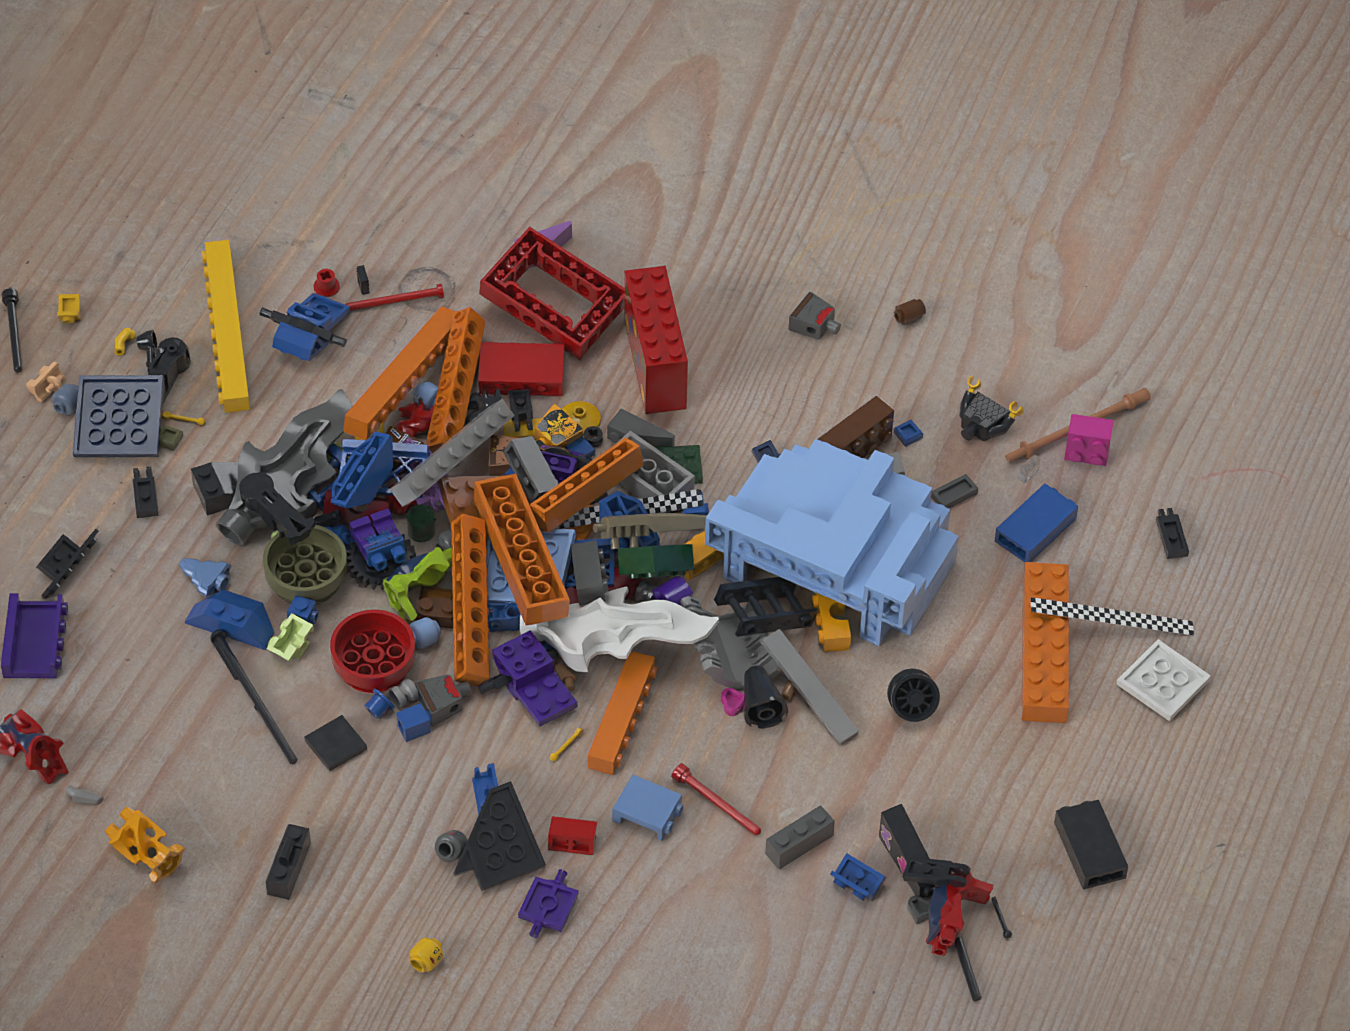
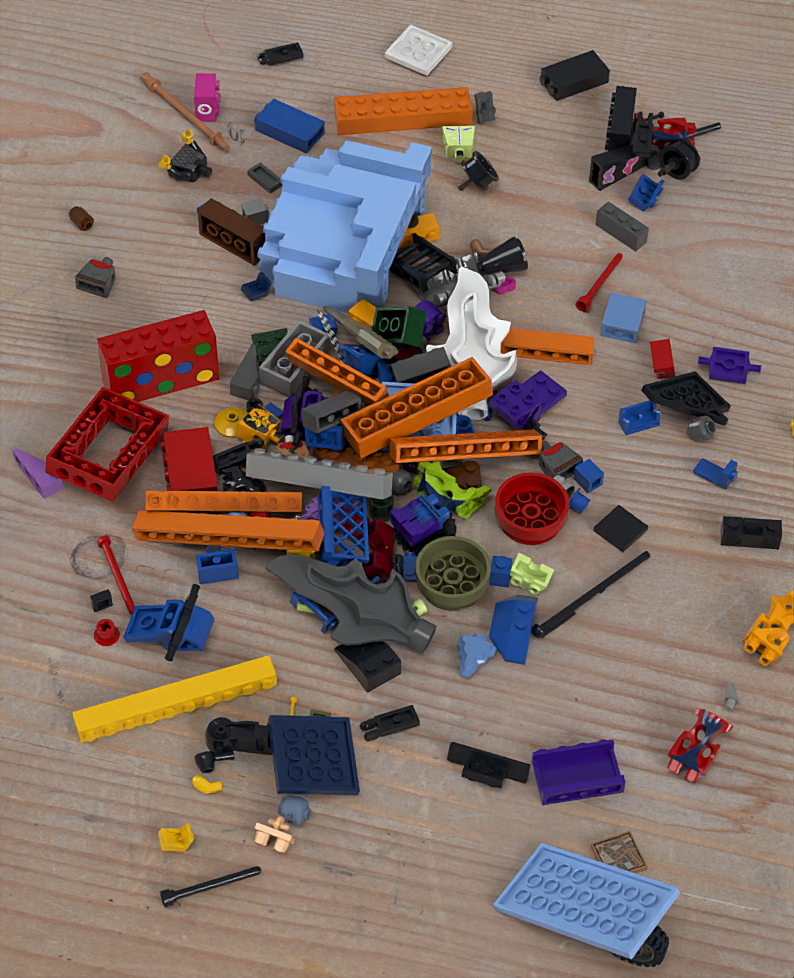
camera: 100 degrees left, 0 degrees up
(259, 495) = (402, 600): black piece -> none
(364, 472) = (361, 531): blue wedge -> none
(374, 364) = (217, 565): none -> blue brick
(387, 851) = (715, 473): none -> blue bracket
(425, 632) = (494, 480): light blue head -> none
(554, 756) = (561, 373): yellow hinge -> none
(809, 687) = (484, 233): light grey tile -> none
(900, 918) = (679, 159): none -> black wheel
(980, 692) = (458, 141): none -> yellowish green torso
(992, 865) = (621, 119): none -> black brick
(1034, 724) = (484, 107): none -> dark grey hips
(1111, 616) = (374, 74): sticker -> none

